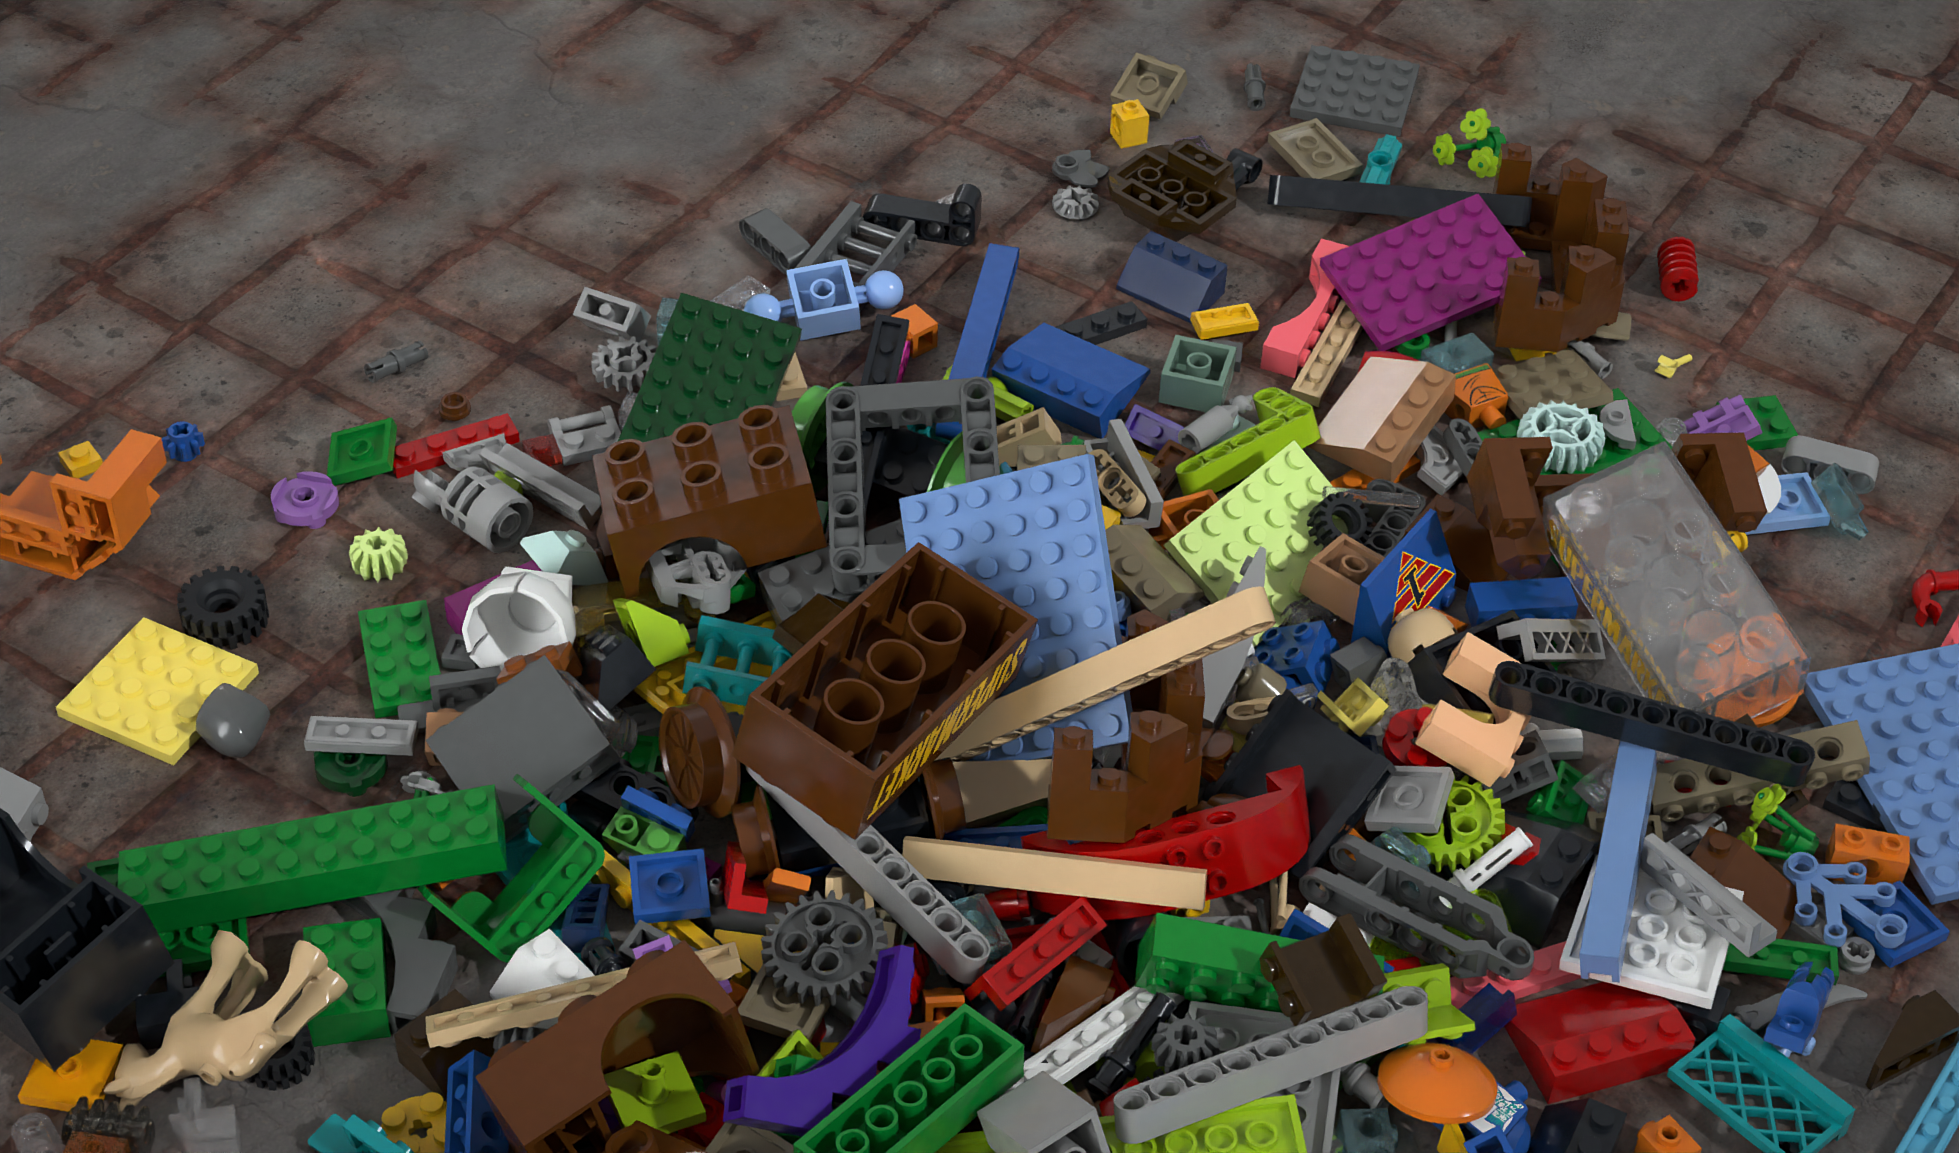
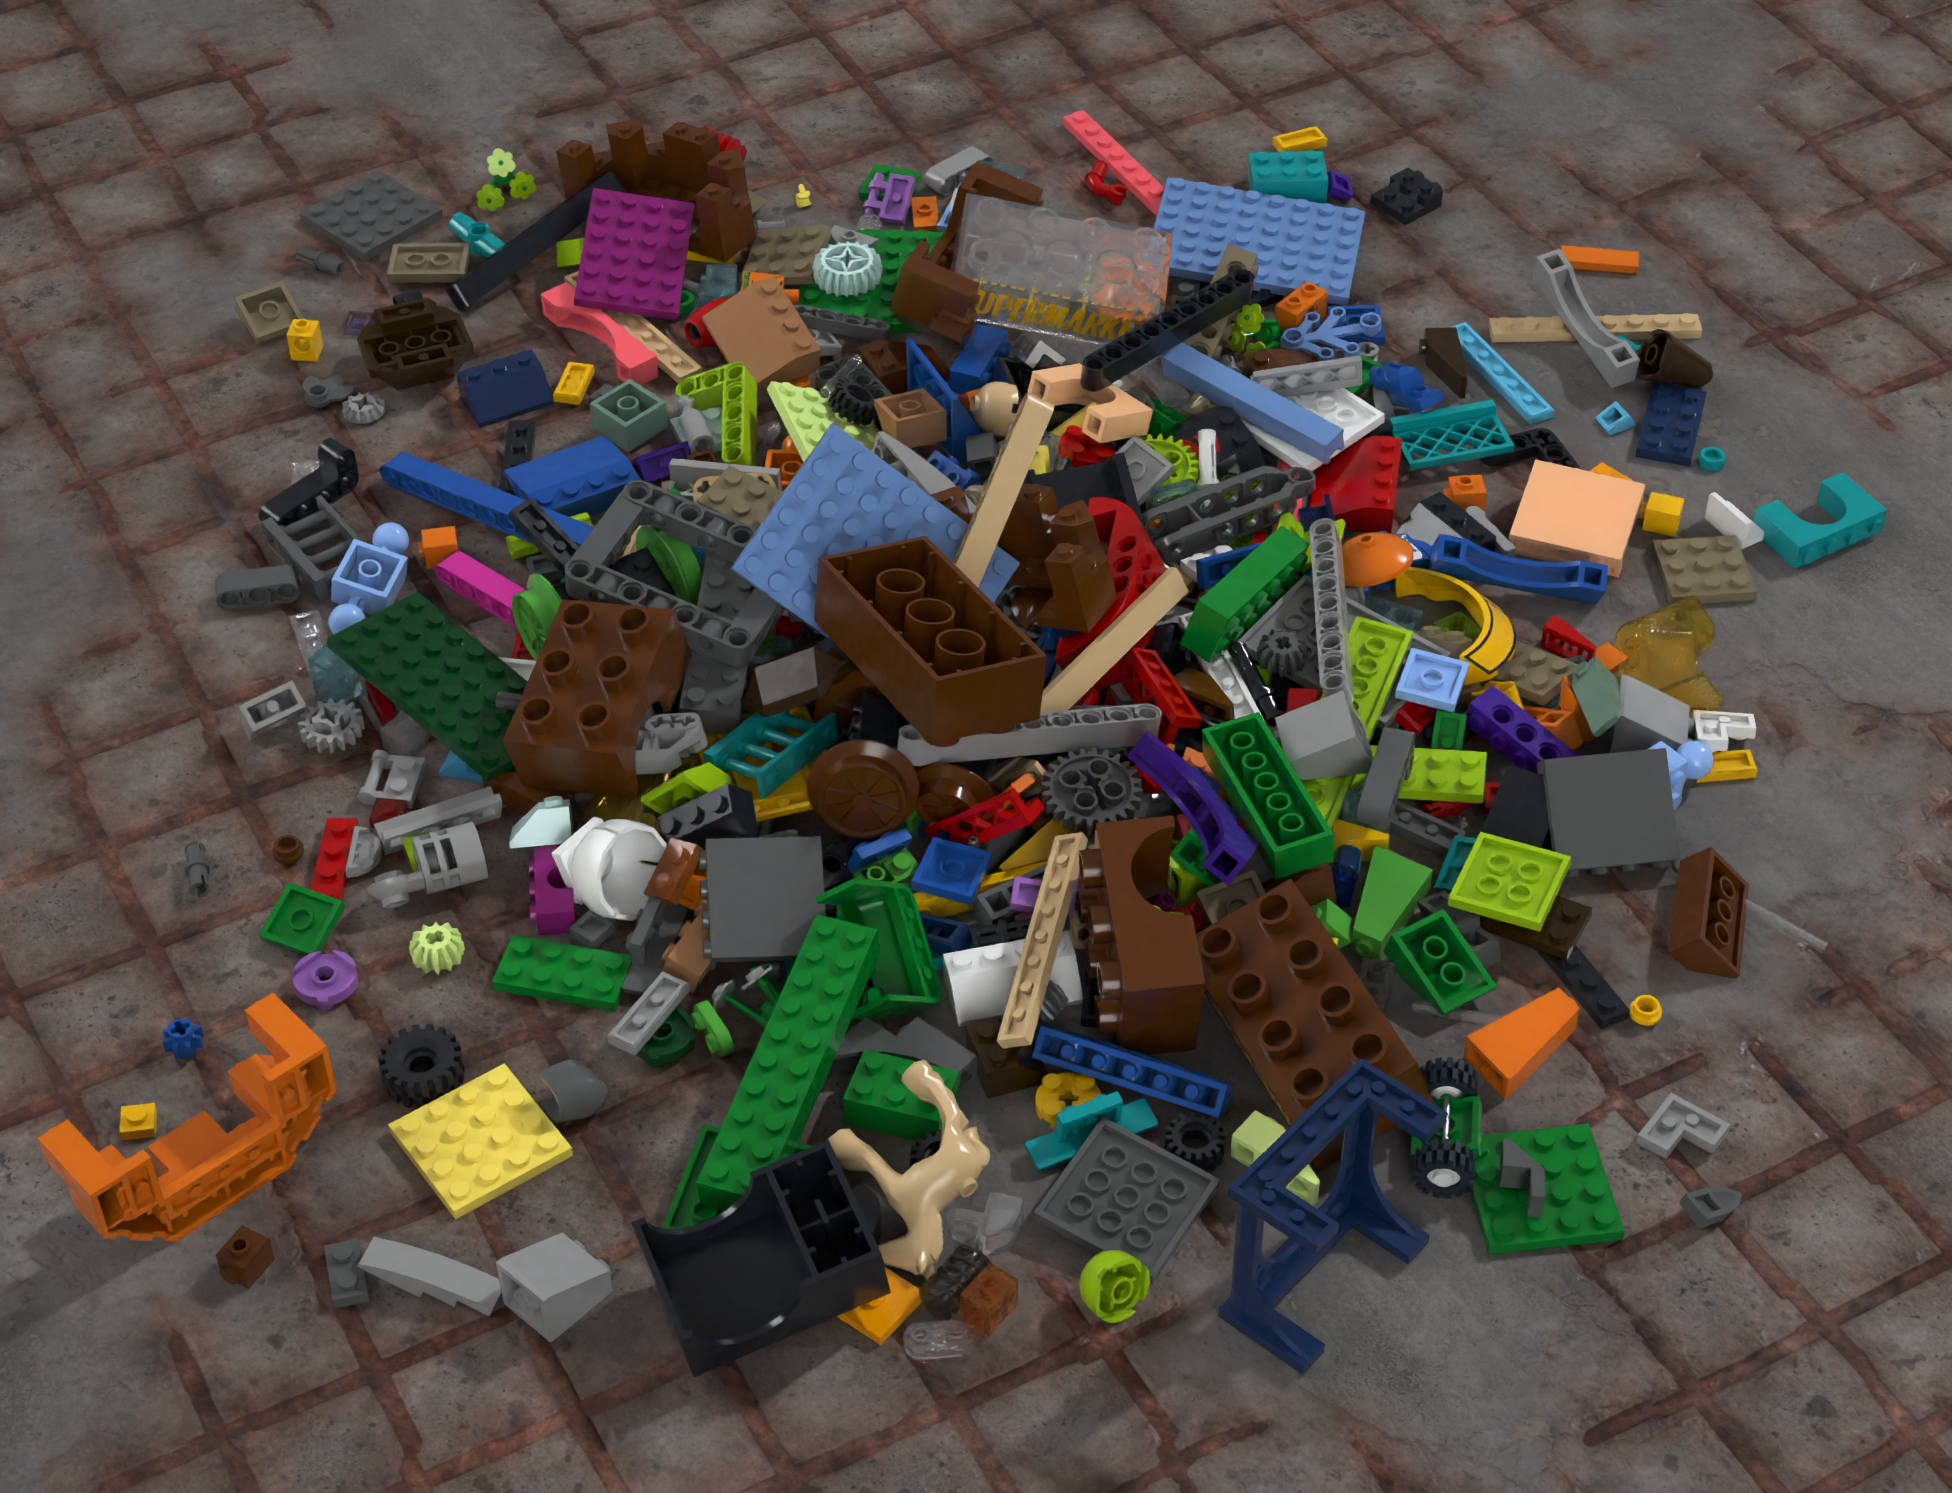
camera: 60 degrees left, 0 degrees up
(378, 789) = (716, 1034): none -> bright green plate
(1323, 972) = (1283, 550): dark brown panel -> none

